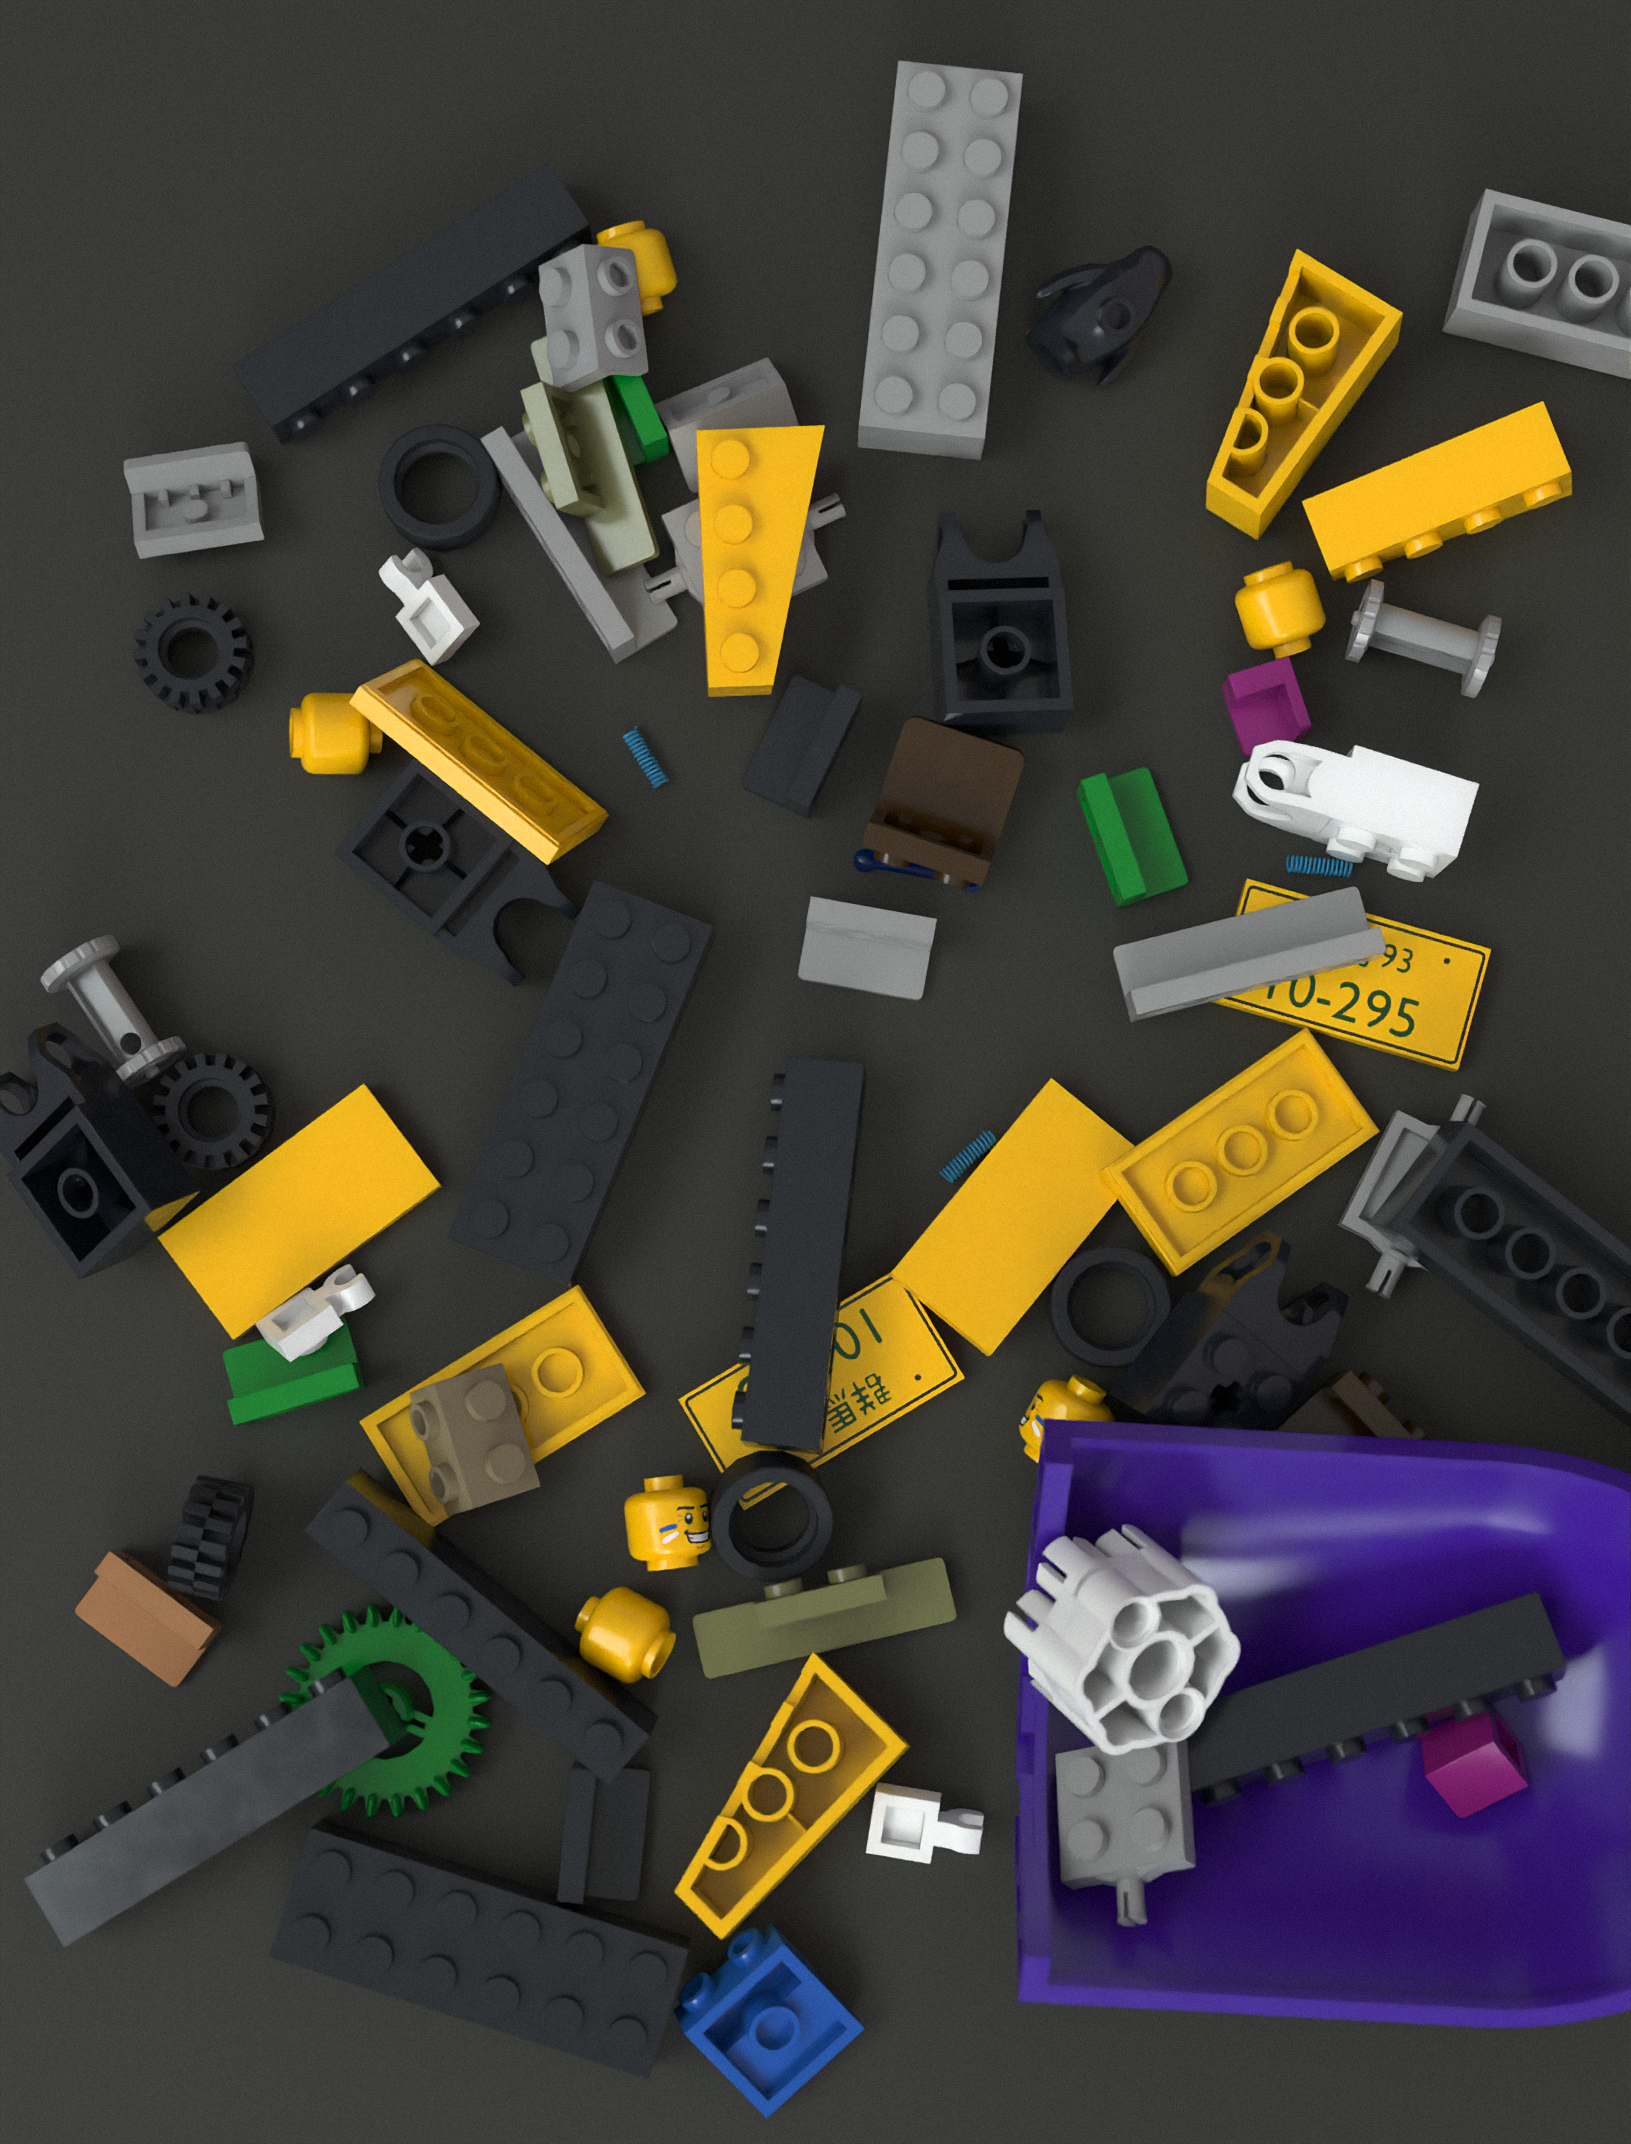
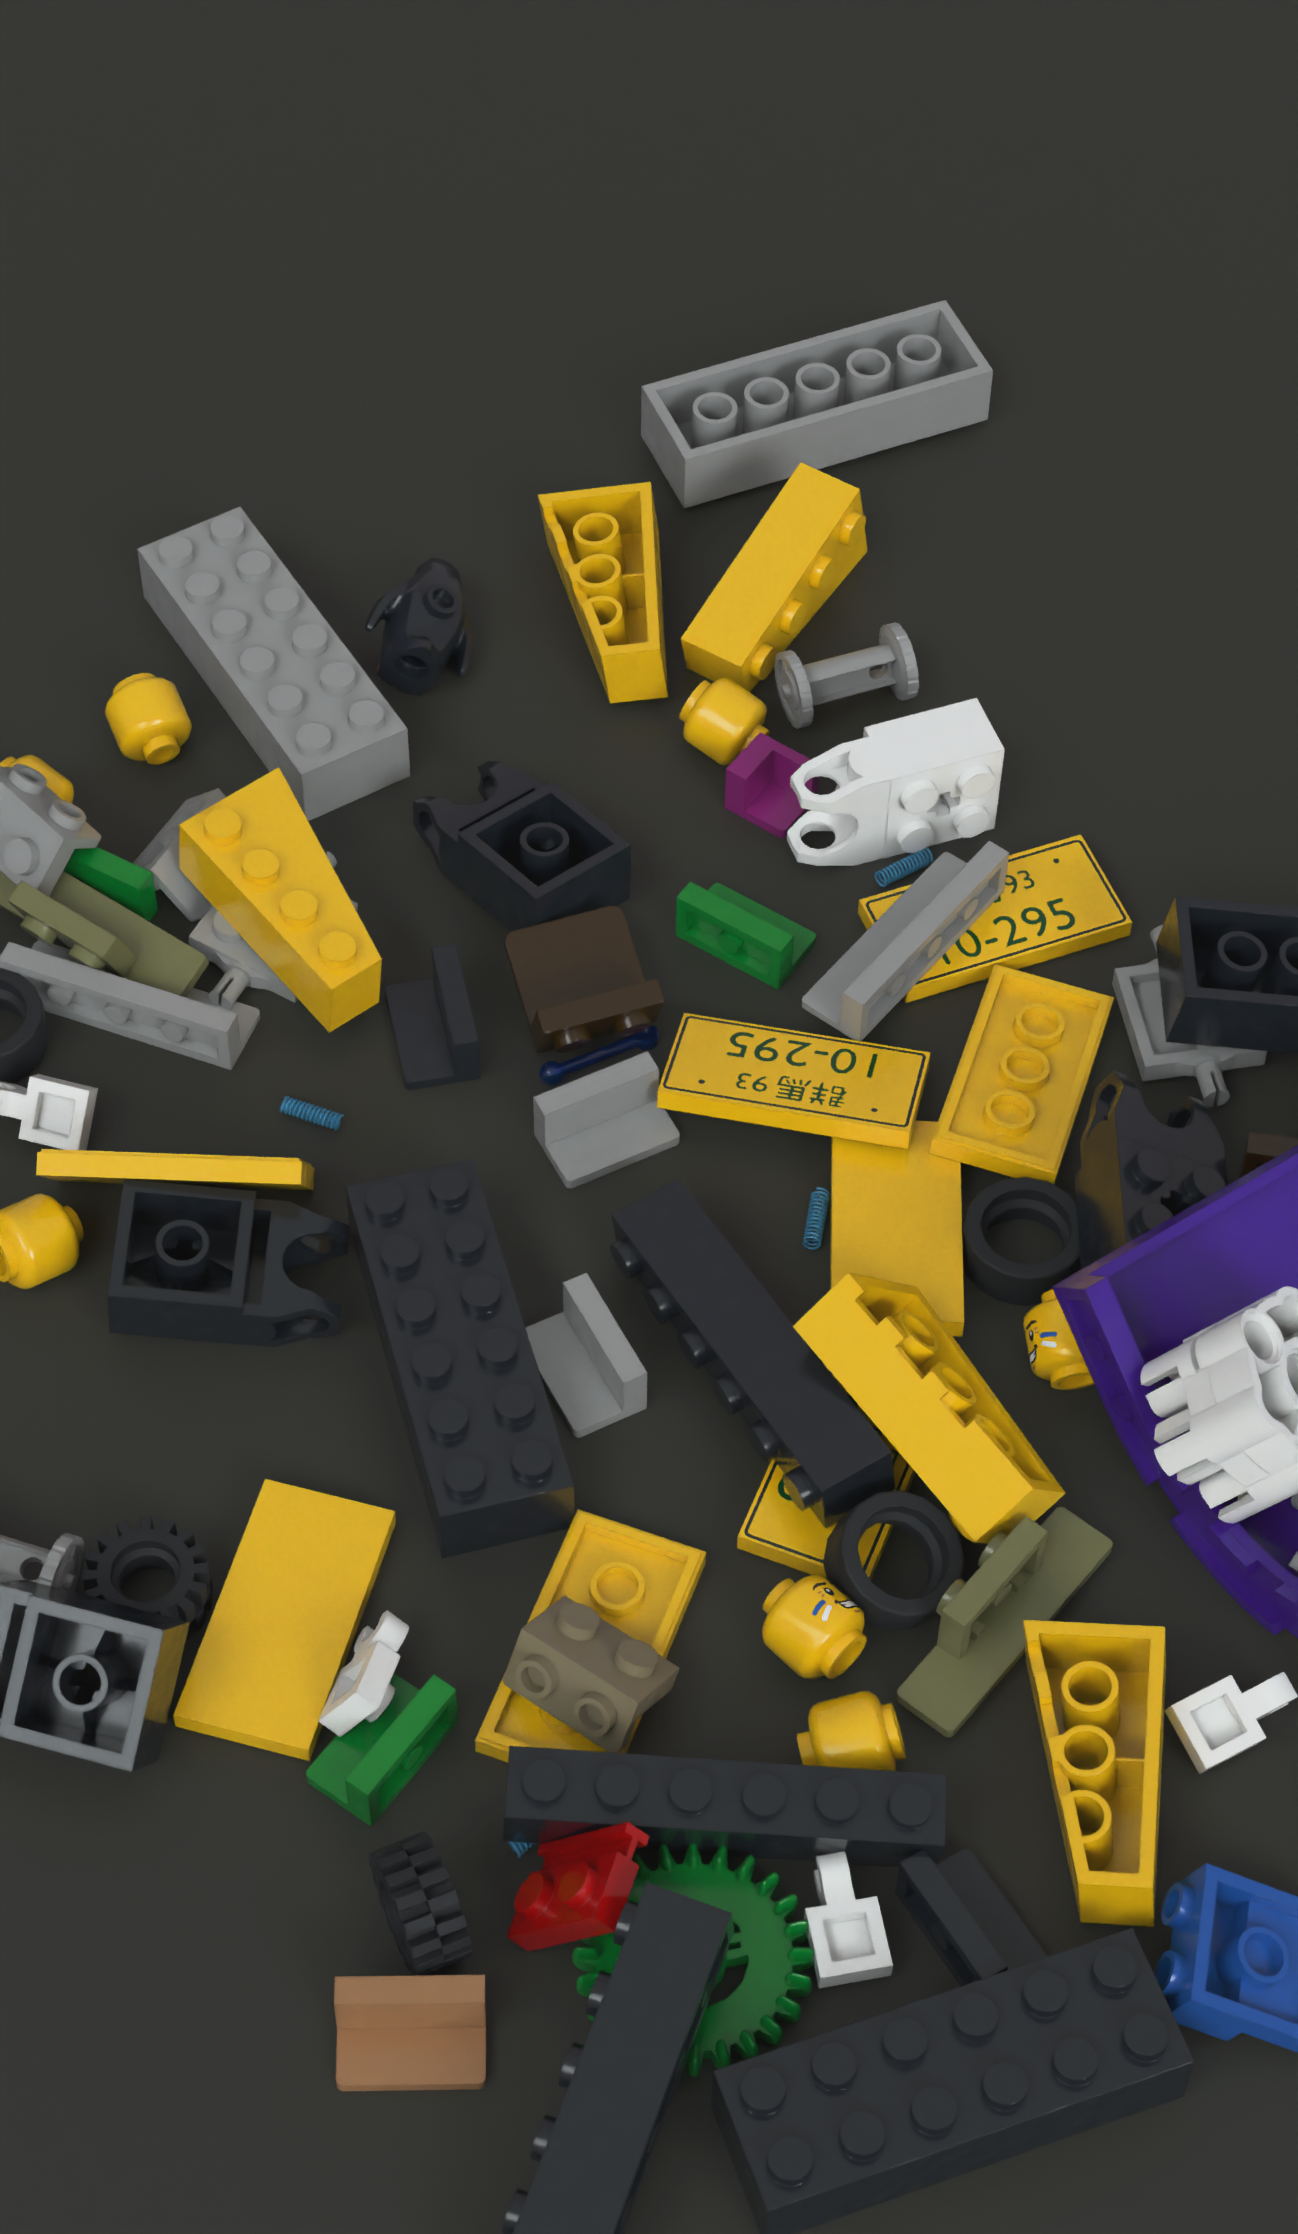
camera: 35 degrees left, 30 degrees down
(328, 1614) = (577, 1888): none -> red plate
(504, 1775) = (845, 1931): none -> white plate
(680, 1155) = (587, 1361): none -> light grey panel
(791, 249) = (148, 718): none -> yellow head
(889, 1425) = (930, 1403): none -> yellow wedge
(1046, 1021) = (794, 1080): none -> yellow tile

